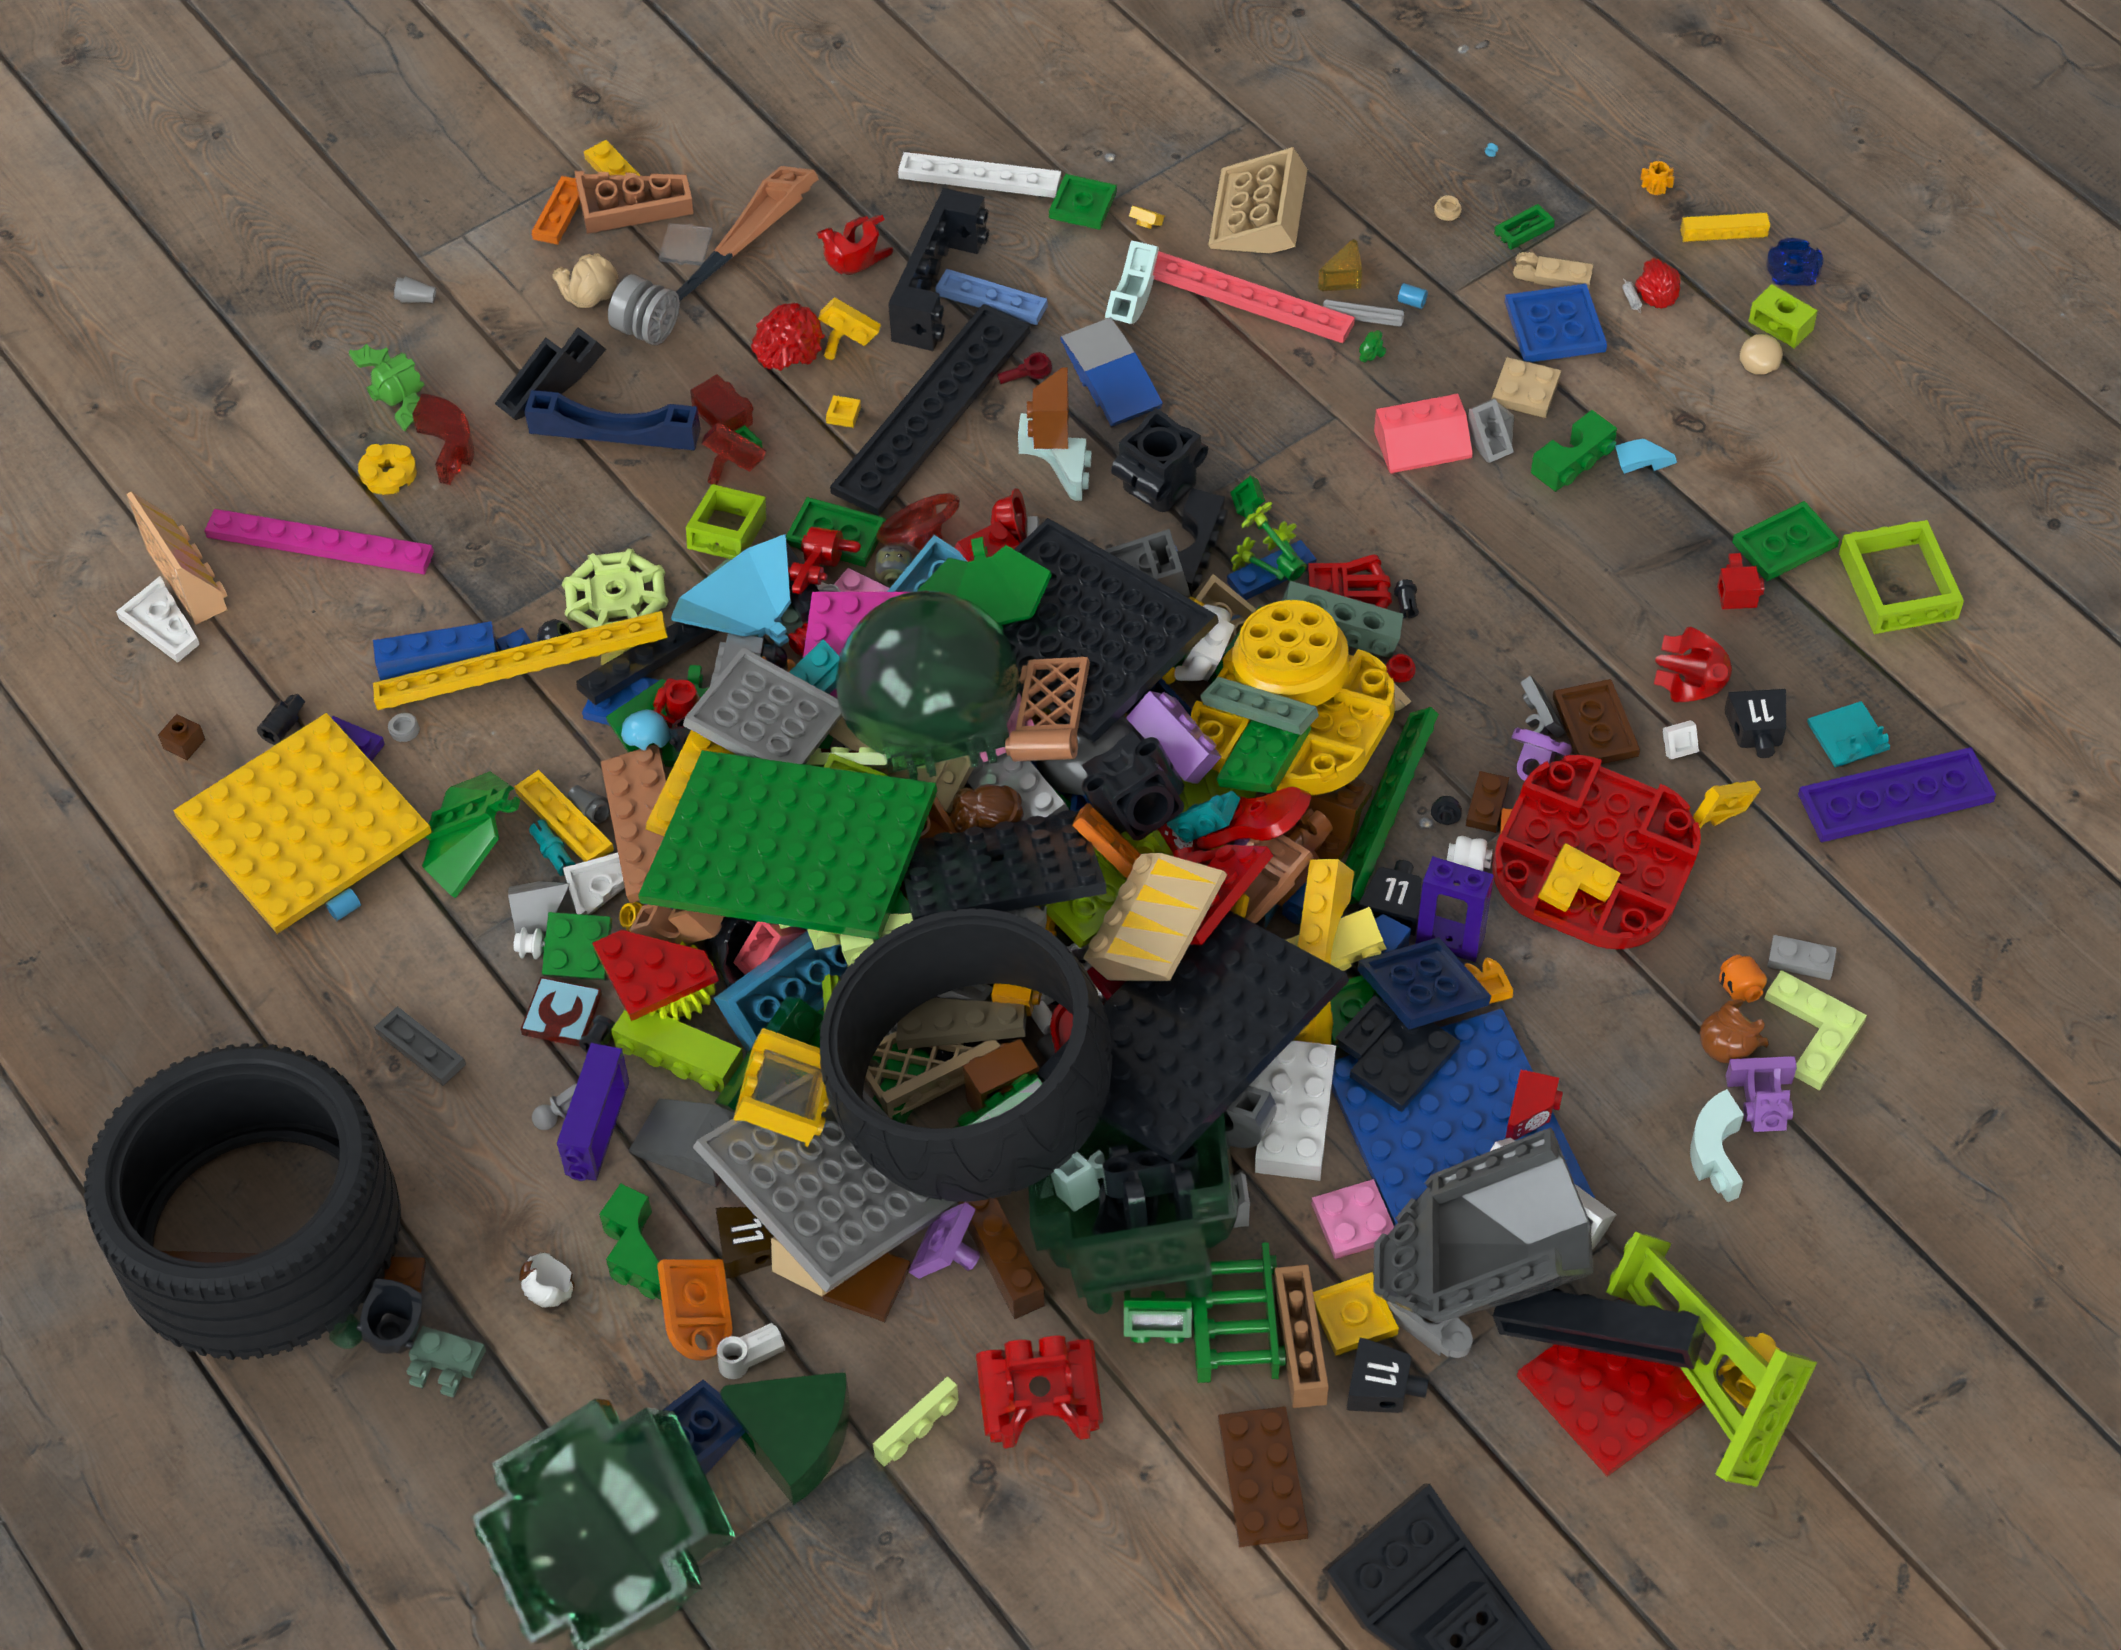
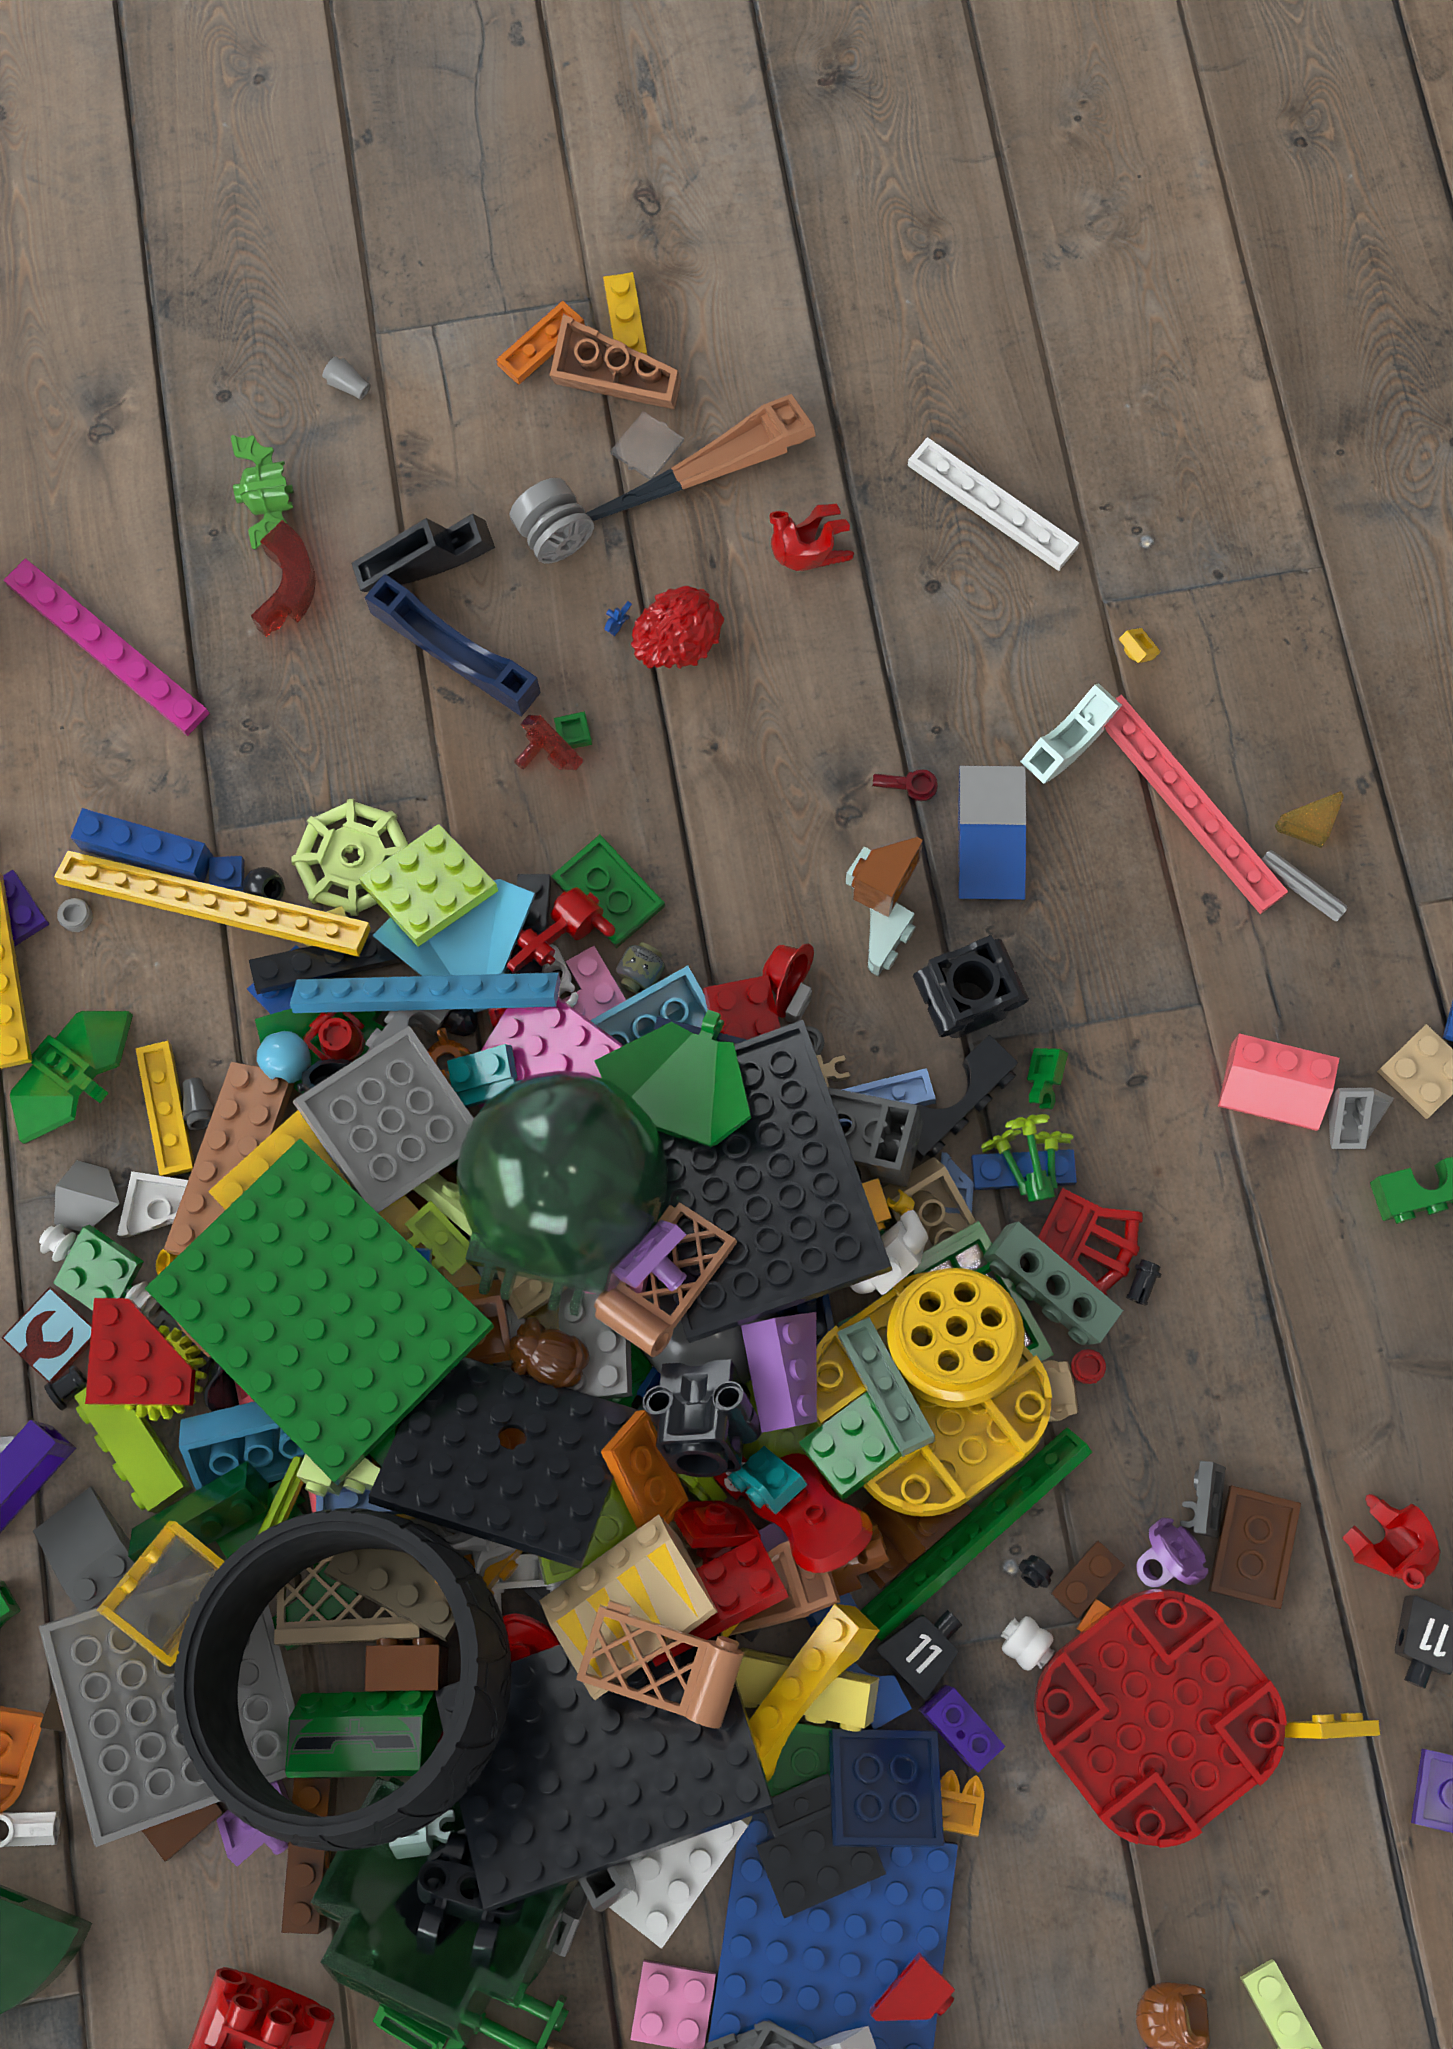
camera: 30 degrees right, 20 degrees up
(382, 456) = (207, 572): yellow plate -> none
(551, 846) = (138, 1137): teal pin -> none
(591, 281) = (521, 454): tan hair -> none
(693, 573) = (428, 885): none -> lime plate
(721, 403) = (572, 678): clear red piece -> none
(731, 543) = (492, 864): lime window -> none
(733, 356) = (617, 618): none -> blue plant
(737, 634) = (426, 993): none -> dark azure plate
(843, 411) = (691, 744): yellow plate -> none
(846, 322) = (745, 634): yellow plate -> none
(914, 310) = (925, 558): black plate -> none
(916, 1422) = (131, 2003): yellowish green plate -> none
(918, 521) = (690, 935): clear red piece -> none
(930, 410) = (782, 785): black plate -> none
(1002, 298) = (920, 671): medium blue plate -> none
(1033, 686) = (652, 1257): none -> medium lavender tile
(1082, 201) = (1082, 592): green plate -> none
(1248, 919) = (710, 1676): none -> nougat piece
(1259, 204) = (1268, 688): tan slope -> none
(1372, 346) = (1286, 937): green plant -> none
(1412, 296) = (1369, 890): dark azure hinge -> none
(1574, 871) = (1115, 1737): yellow plate -> none
(1680, 739) = (1331, 1617): white tile -> none
(1742, 978) = (1227, 1950): orange head -> none
(1802, 957) = (1307, 1953): light grey plate -> none

